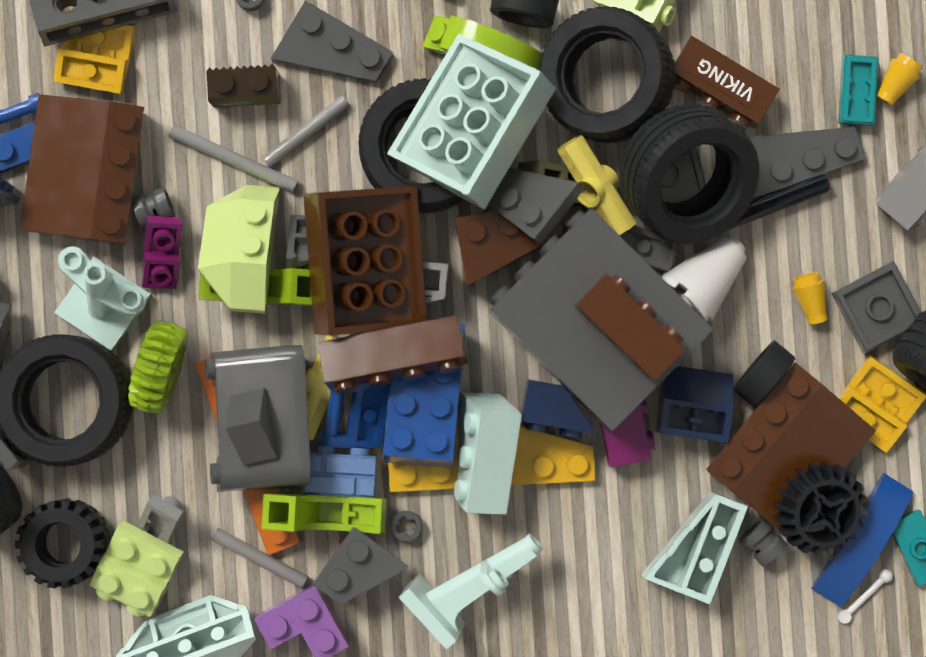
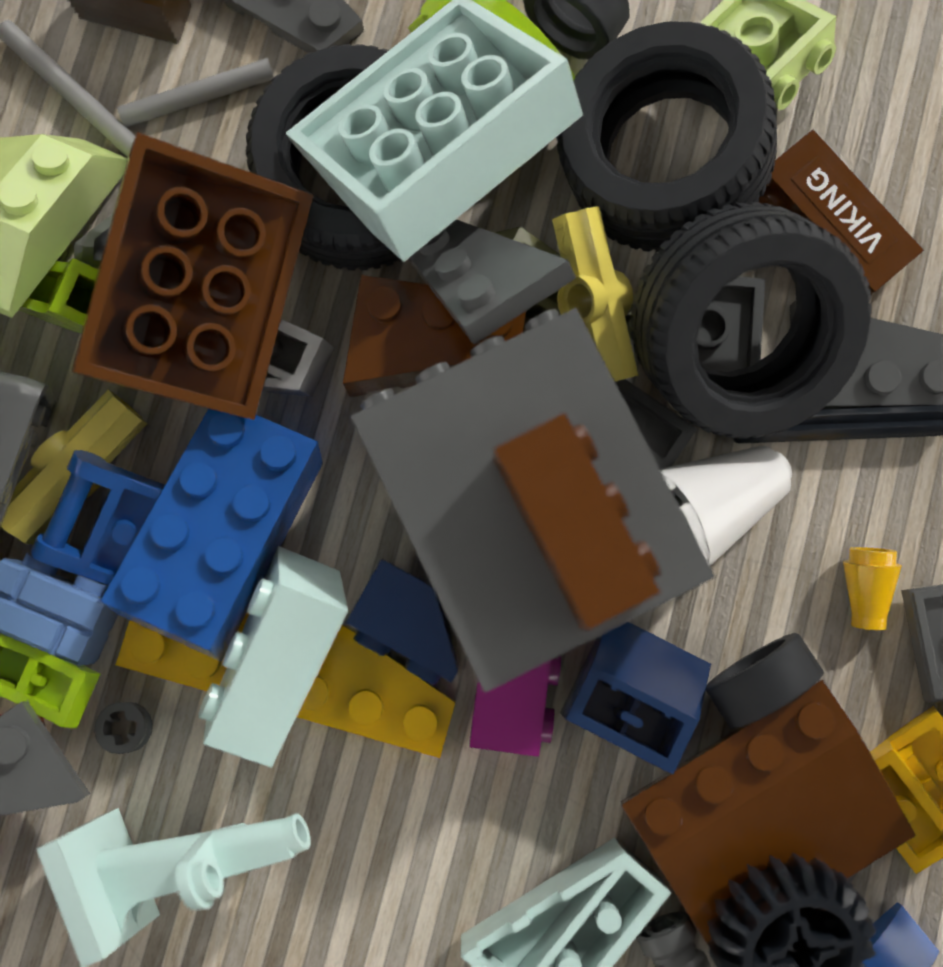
camera: 20 degrees right, 5 degrees down
(393, 353) = (176, 442): reddish brown brick -> none

